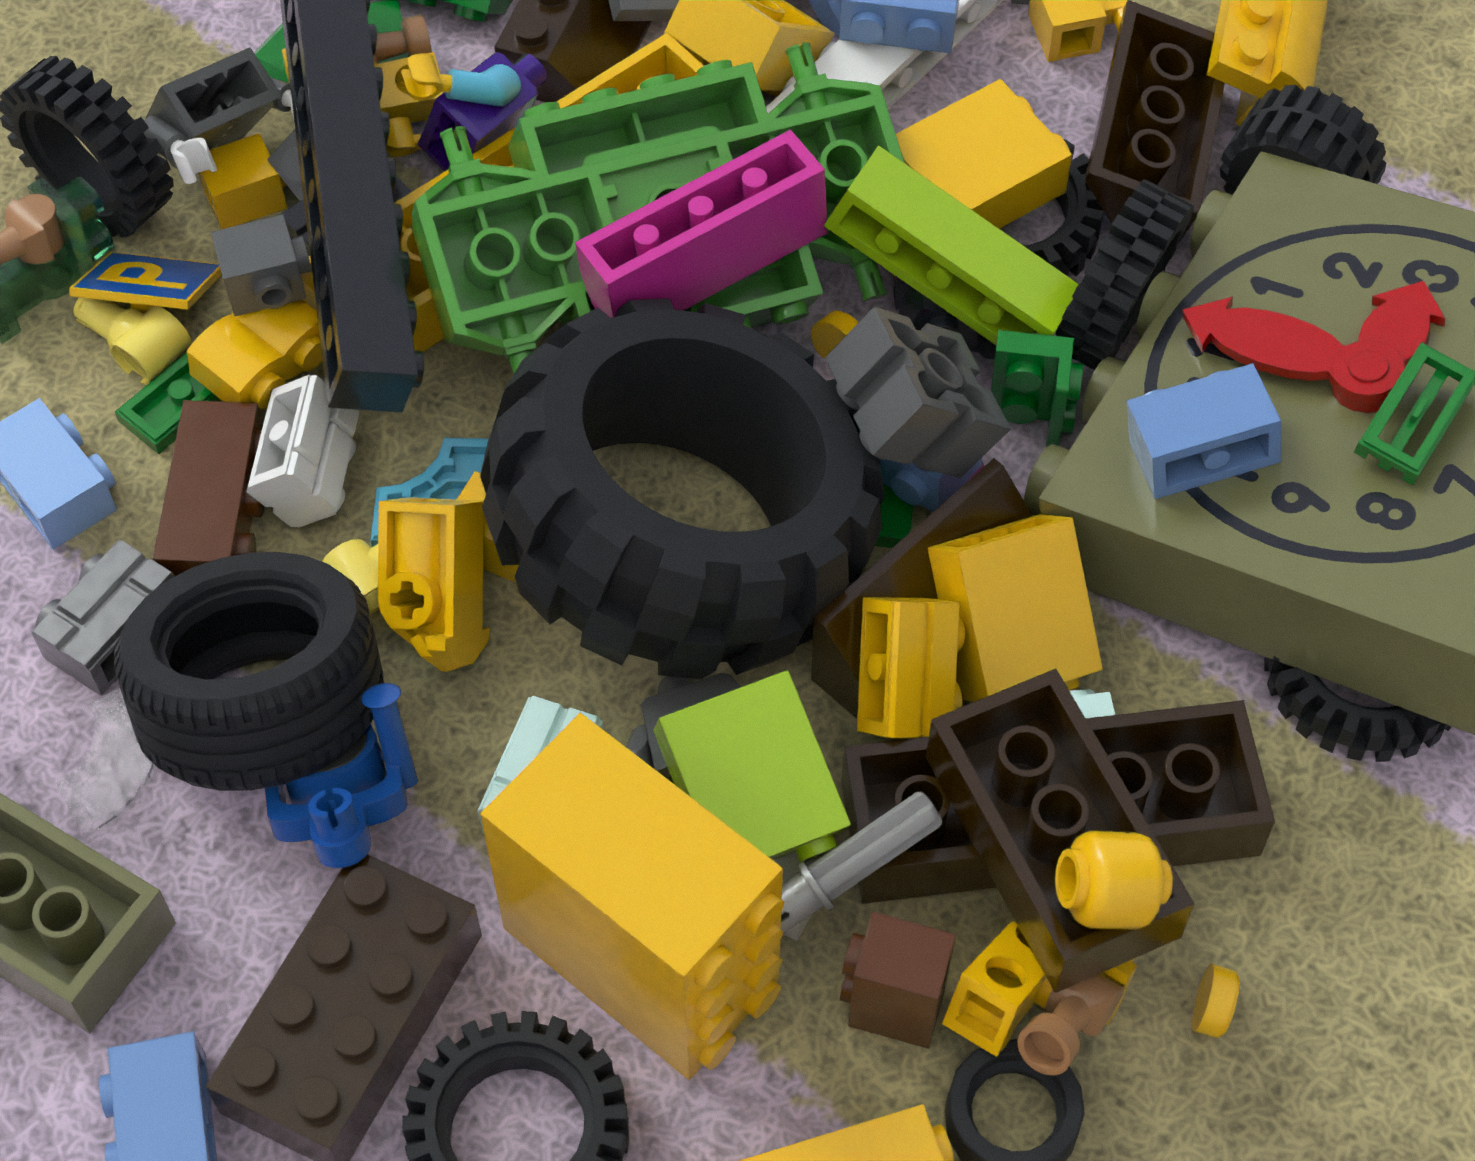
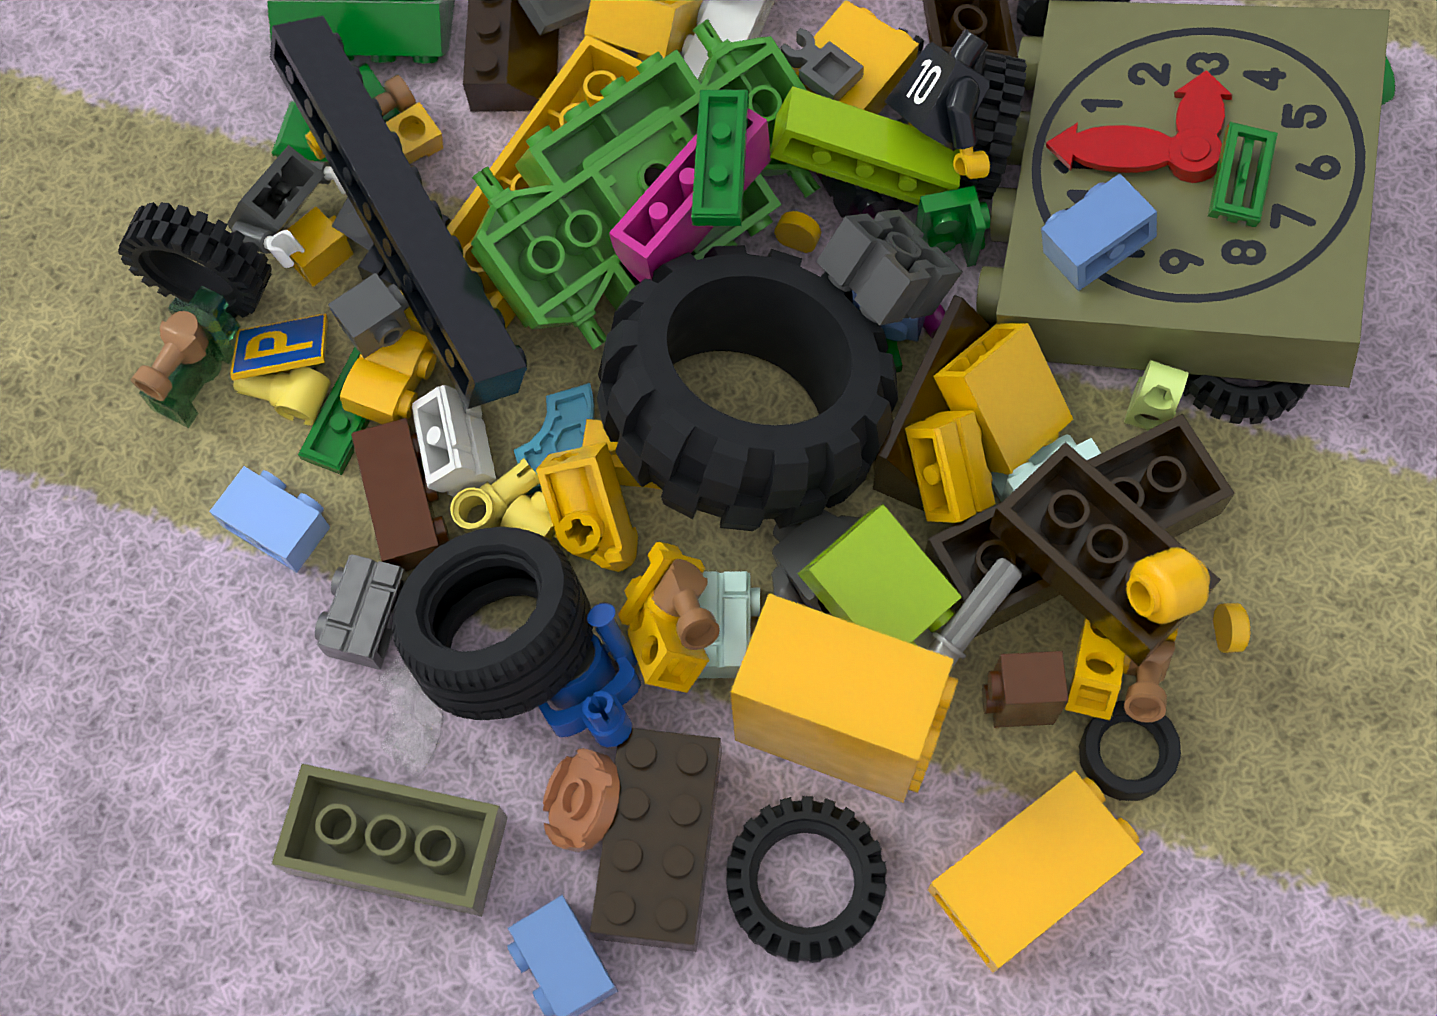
camera: 15 degrees left, 10 degrees up
(270, 925) = (581, 800): none -> nougat tile
(319, 529) = (495, 496): none -> light yellow pin
(472, 740) = (667, 620): none -> yellow hips
(482, 101) = (471, 139): torso -> none
(746, 194) = (720, 158): none -> green tile
(935, 147) = (823, 70): none -> dark grey plate
(1065, 214) = (942, 97): none -> black torso
(1224, 668) = (1156, 395): none -> yellowish green leg

